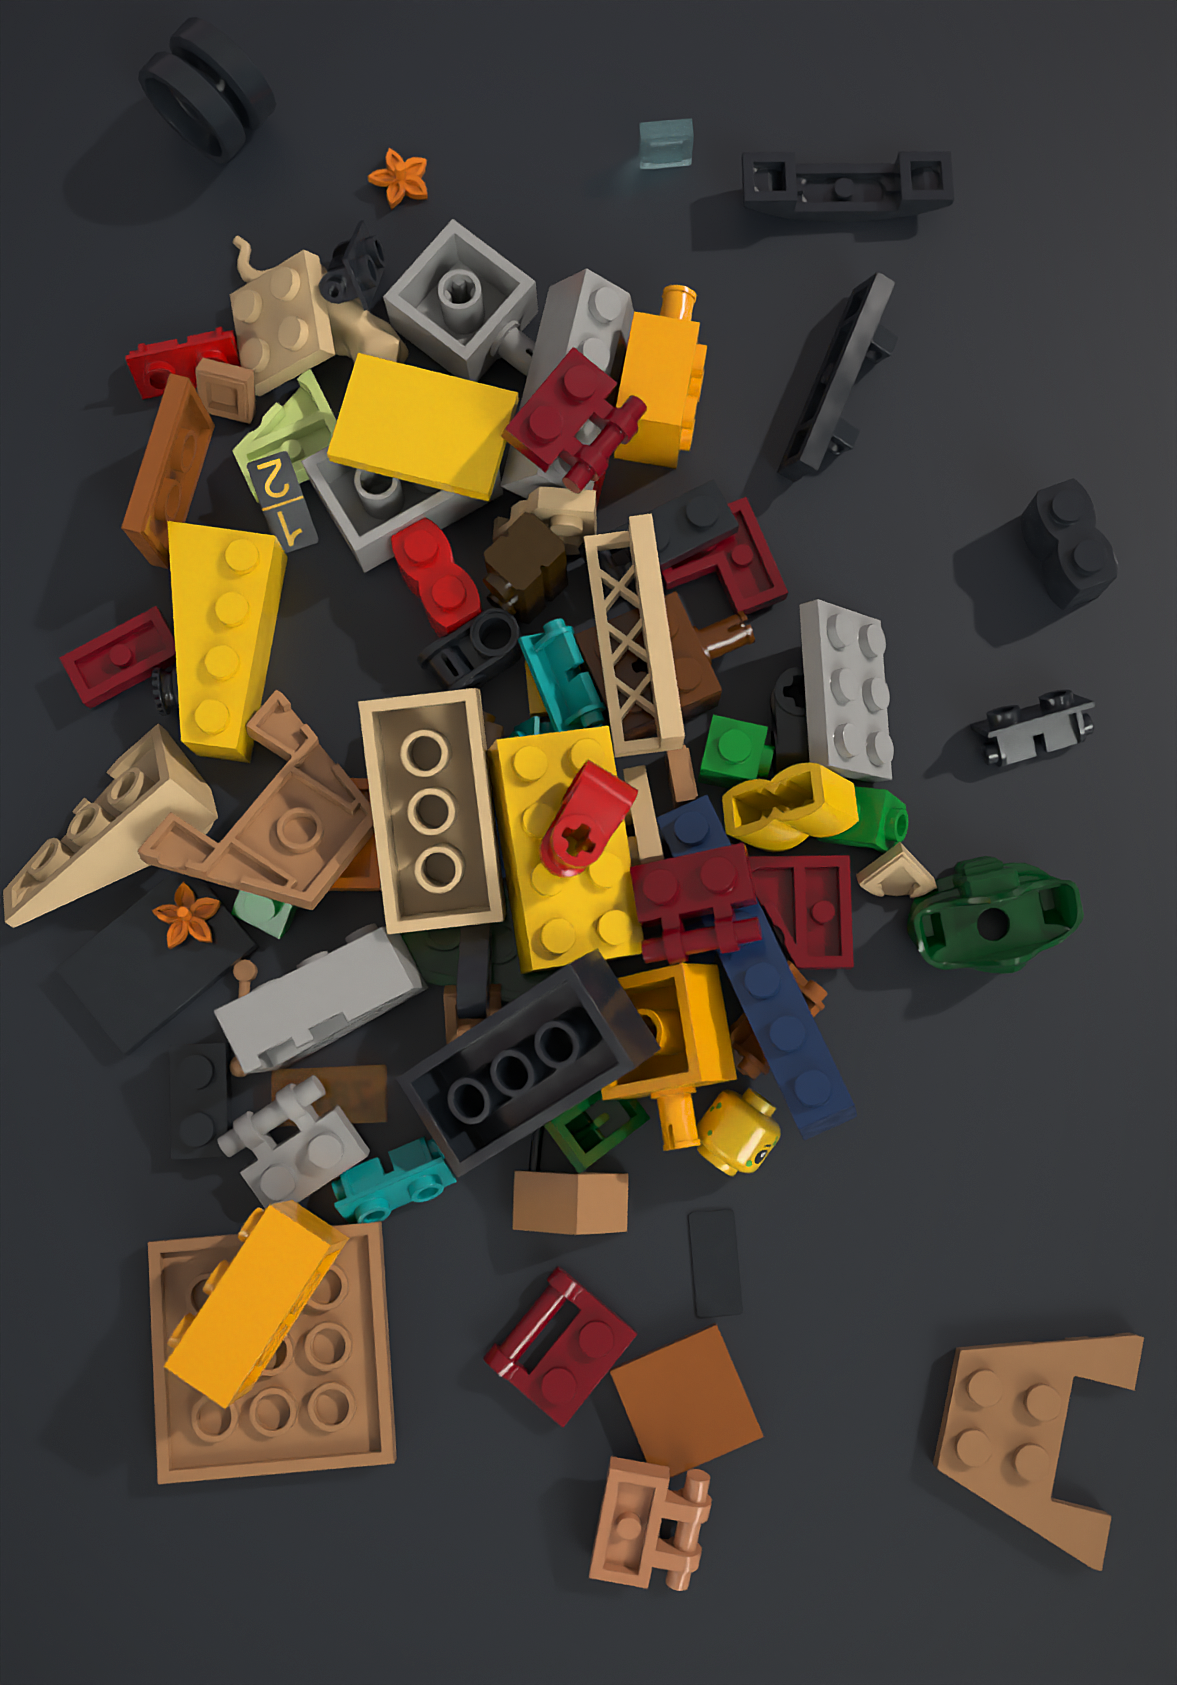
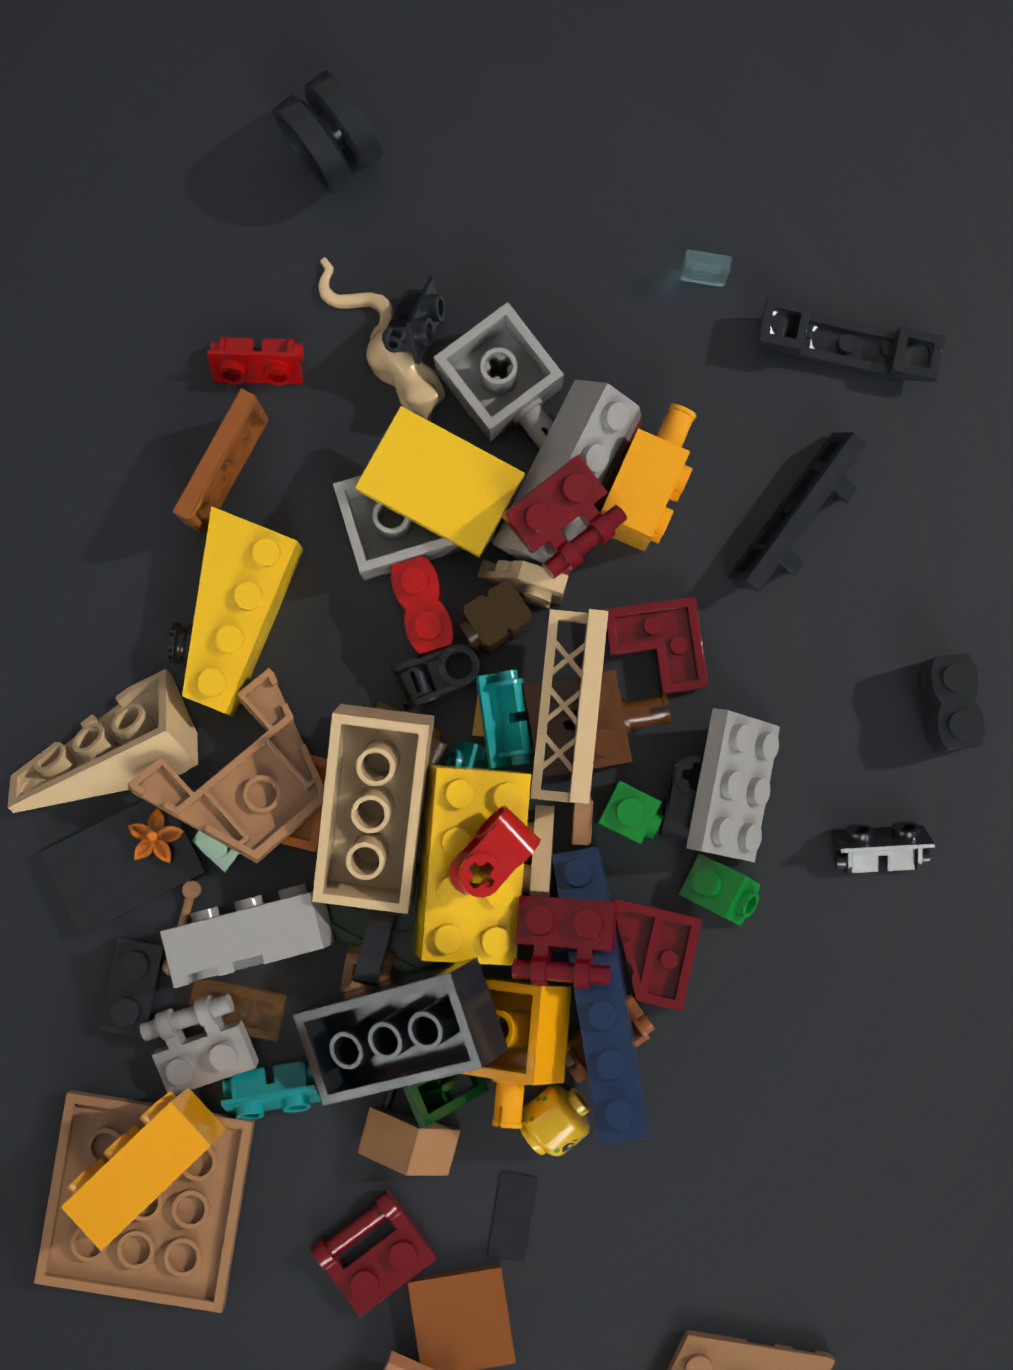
camera: 10 degrees right, 5 degrees up
(121, 657) = (148, 605): dark red plate -> none
(226, 390) = (284, 397): medium nougat tile -> none
(282, 322) = (344, 352): tan plate -> none
(282, 501) = (310, 506): black sticker -> none
(297, 427) = (327, 453): yellowish green wing -> none
(401, 178) = (474, 240): orange plant -> none
(680, 530) = (629, 615): black plate -> none
(790, 807) = (662, 872): yellow brick -> none
(896, 875) = (737, 942): tan tile -> none
(1037, 909) = (842, 992): dark green piece -> none

